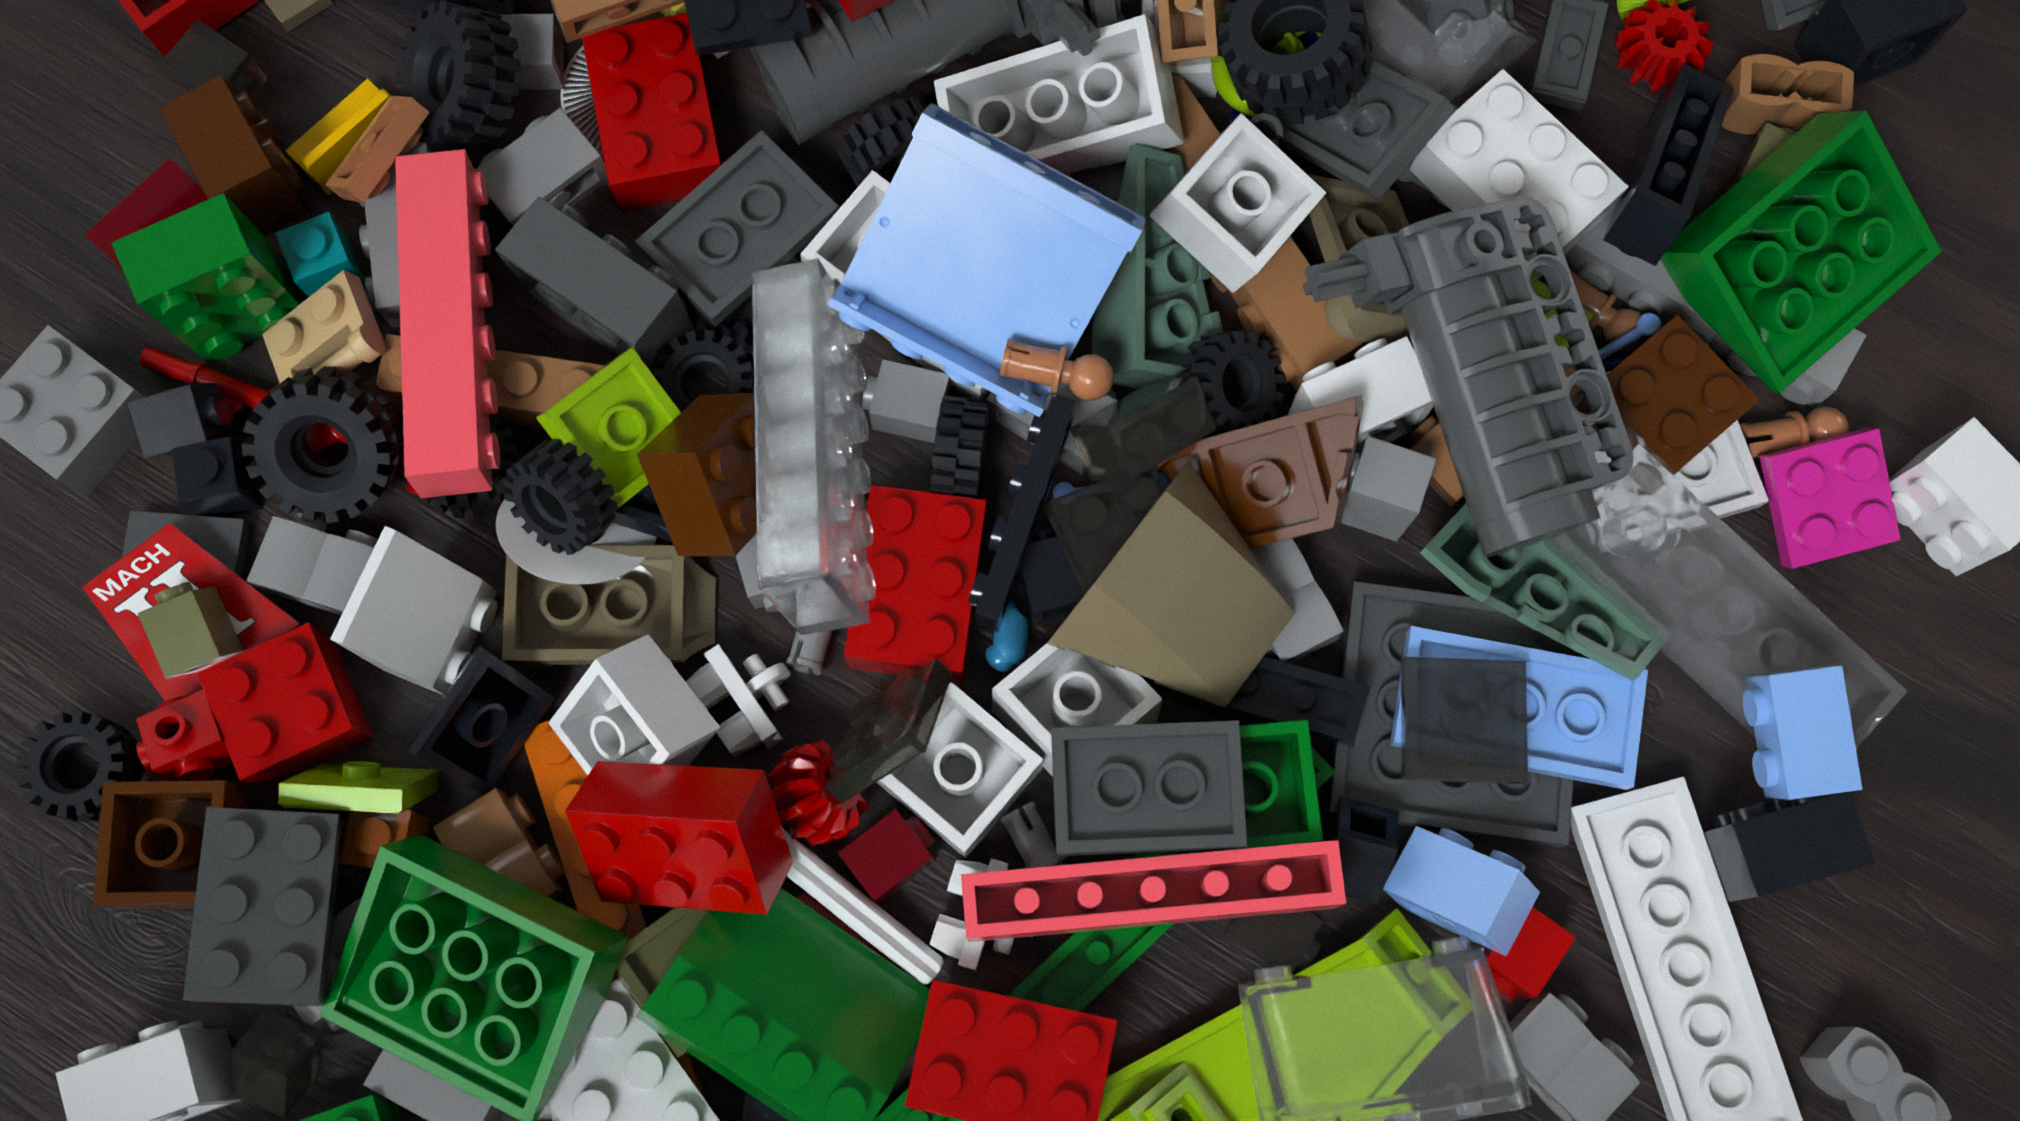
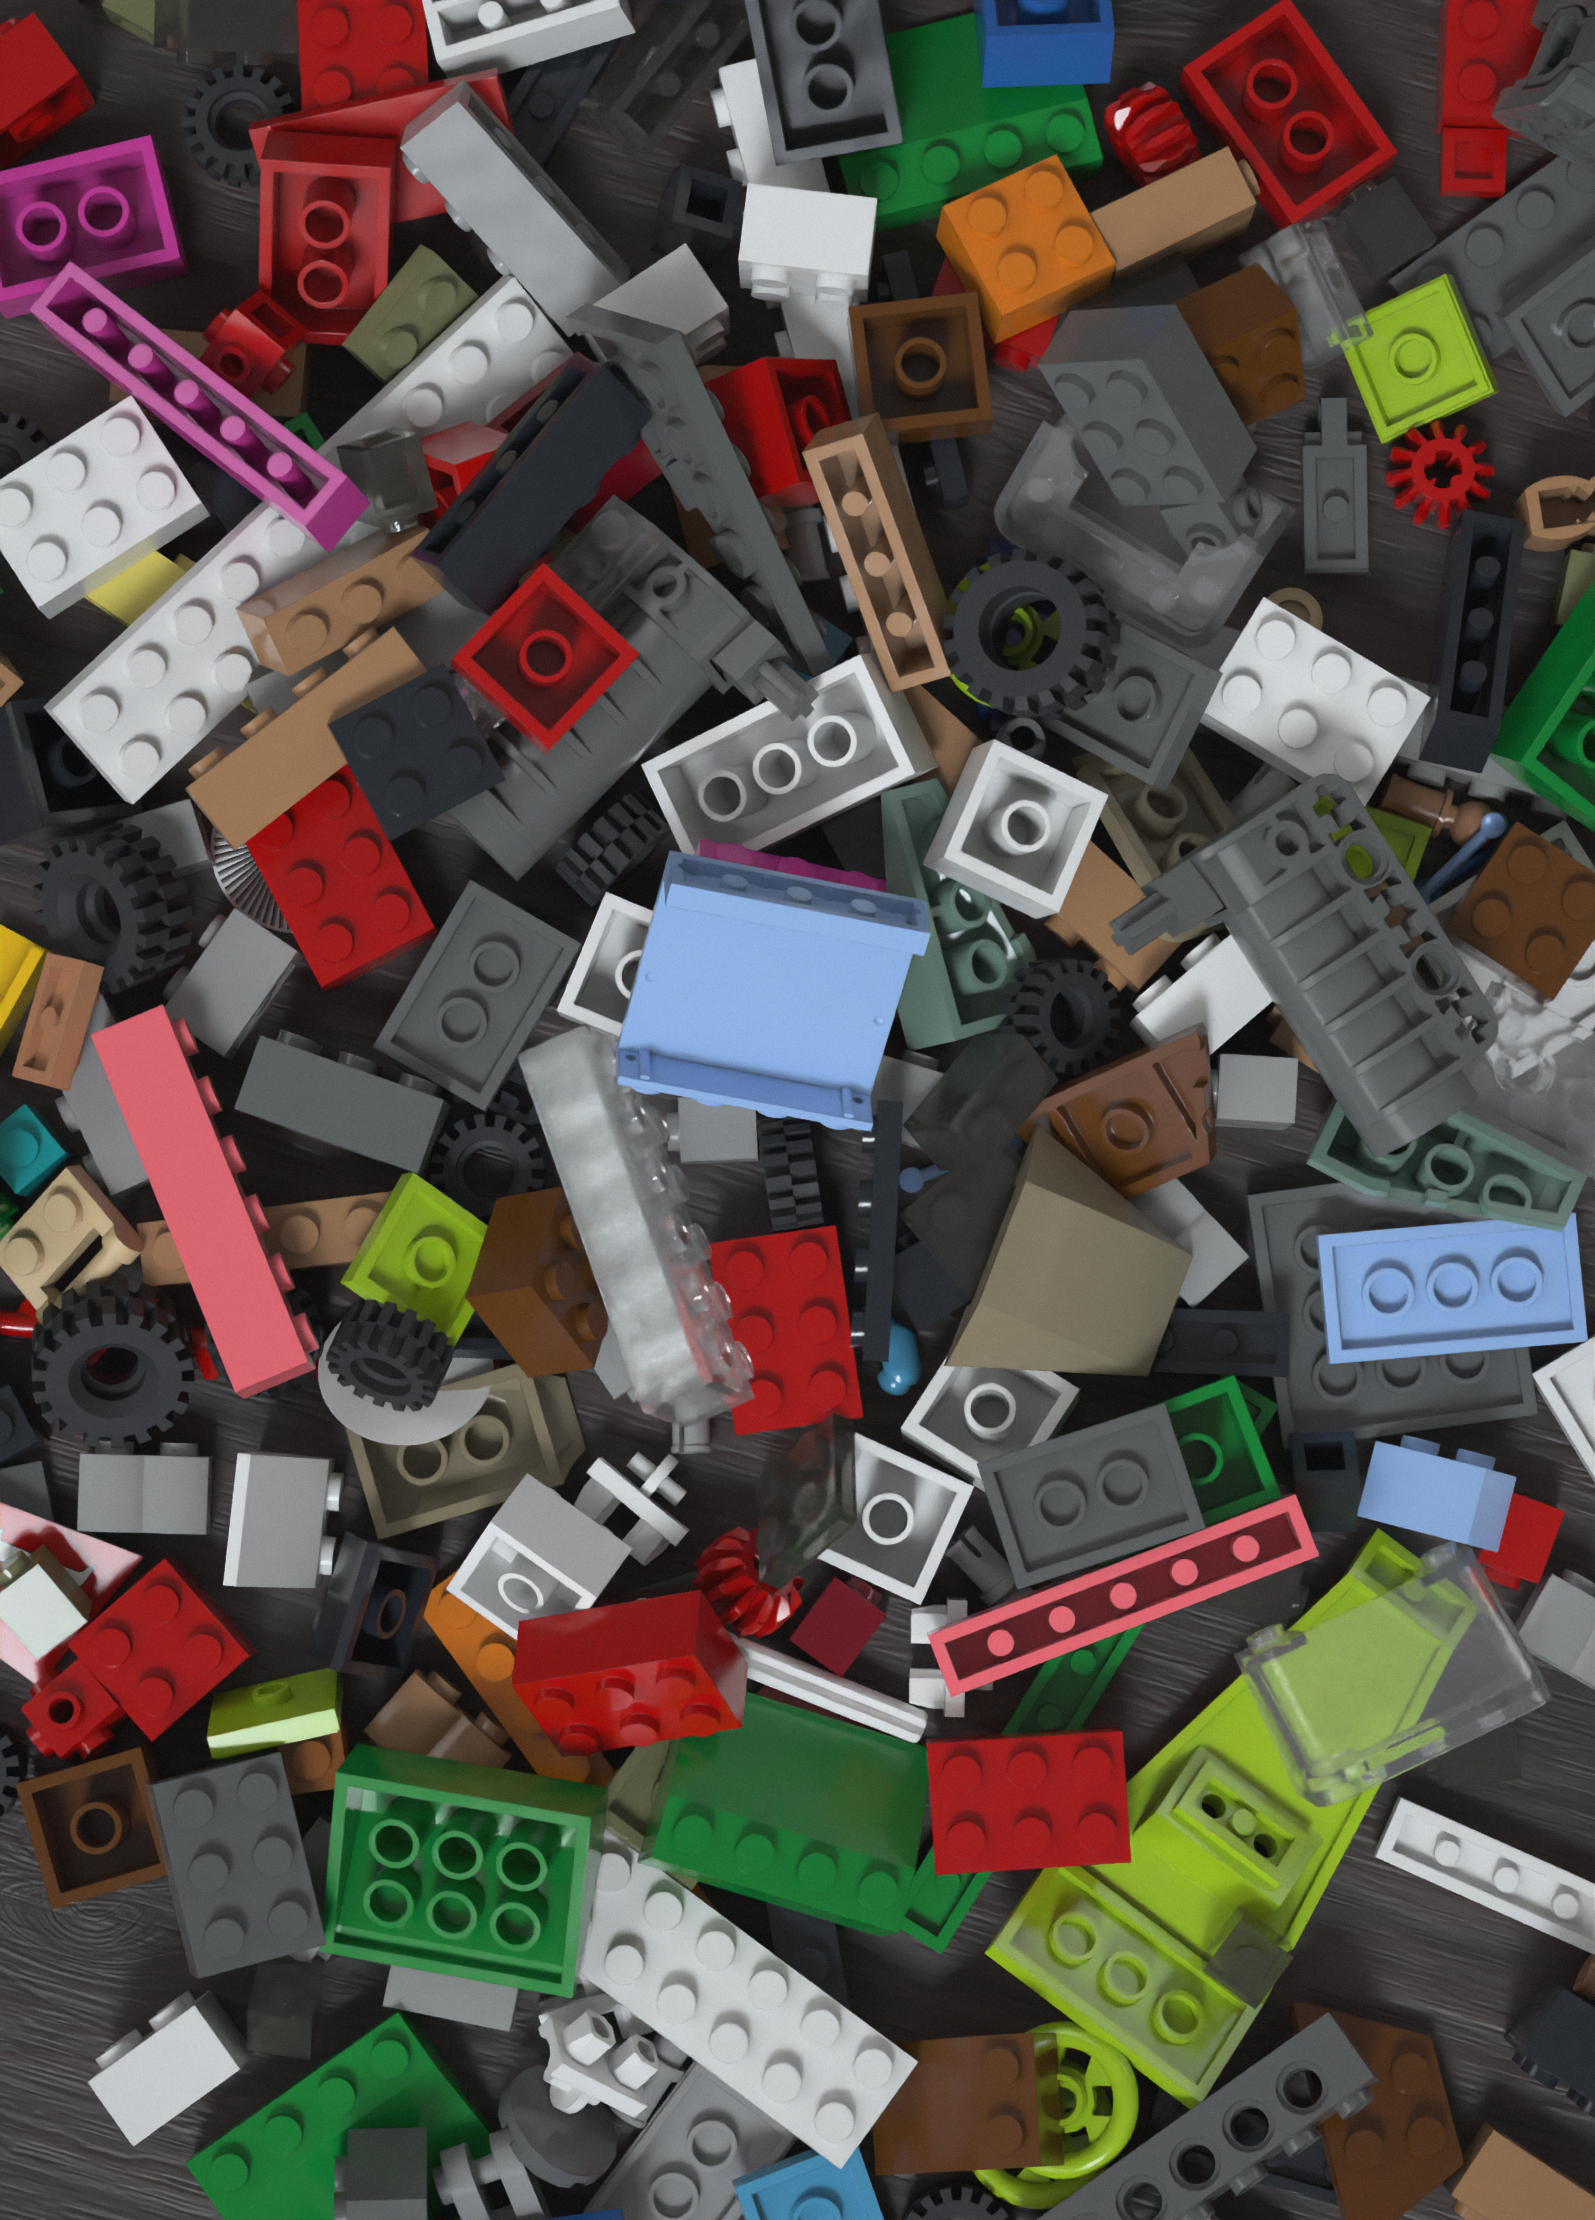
camera: 10 degrees left, 10 degrees up
(1088, 376) = (909, 1074): nougat pin -> none
(1463, 720) = (1396, 1323): clear smoke tile -> none

